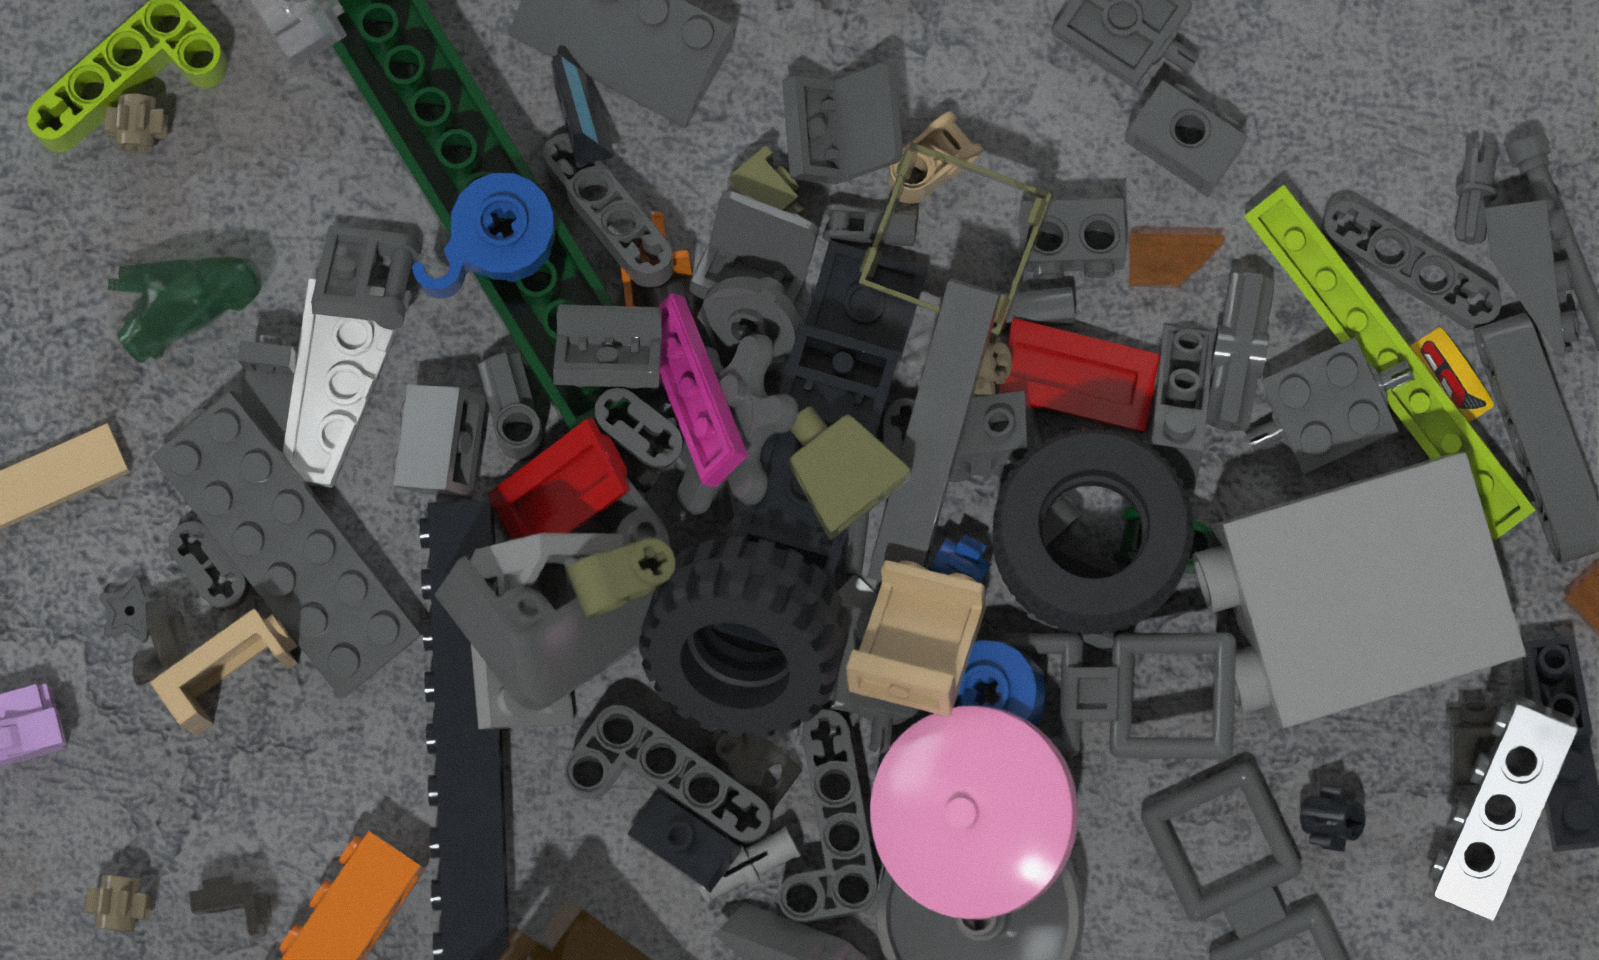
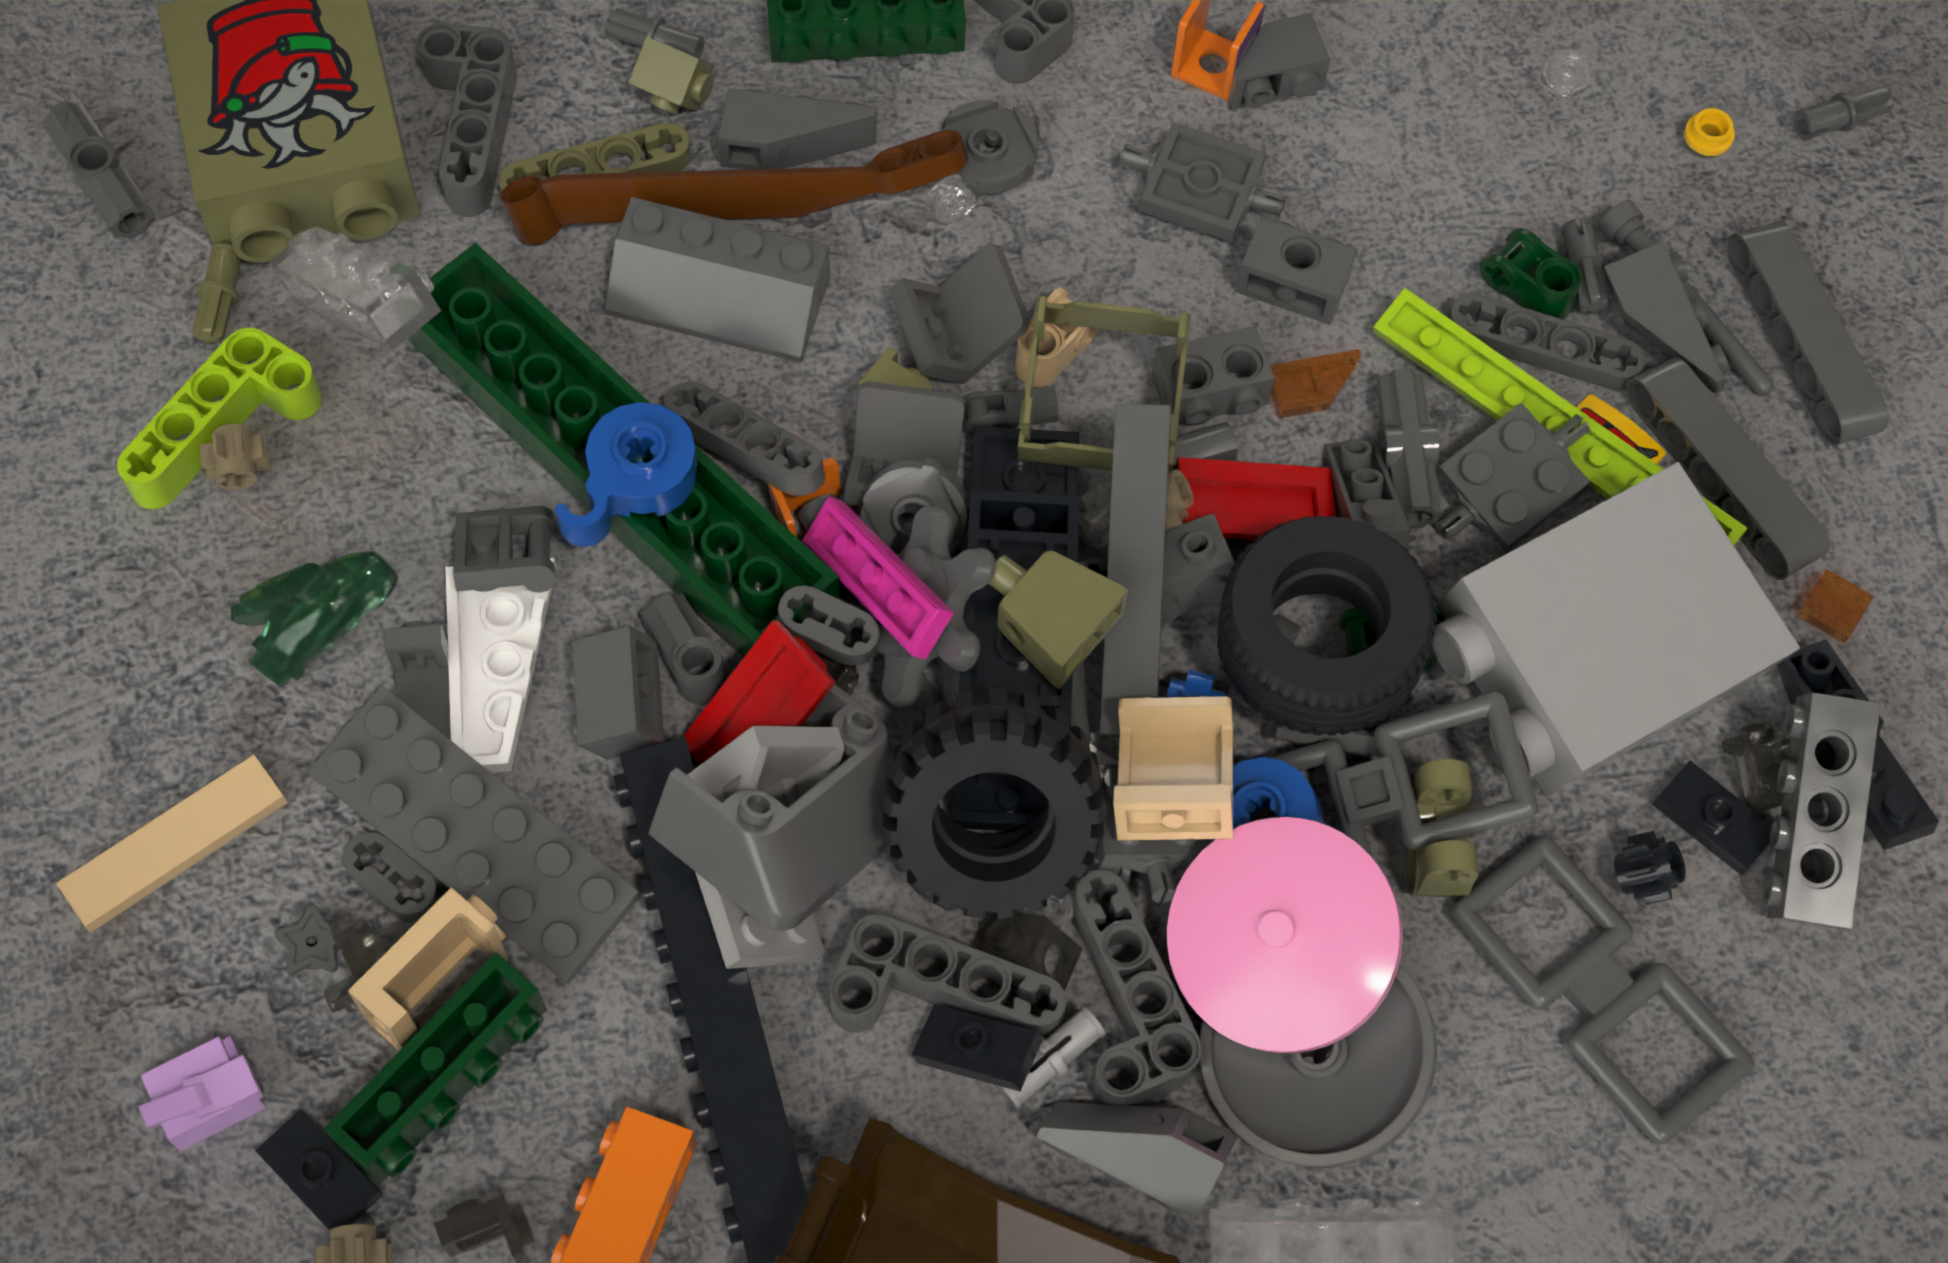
camera: 20 degrees left, 15 degrees down
(102, 818) = (318, 1172): none -> black plate
(216, 756) = (437, 1069): none -> dark green brick
(581, 112) = (692, 359): black slope -> none
(608, 346) = (778, 546): dark grey bracket -> none
(615, 576) = (849, 757): olive piece -> none
(1154, 714) = (1446, 866): none -> olive piece
(1413, 780) = (1715, 817): none -> black plate
(1415, 183) = (1533, 274): none -> dark green piece

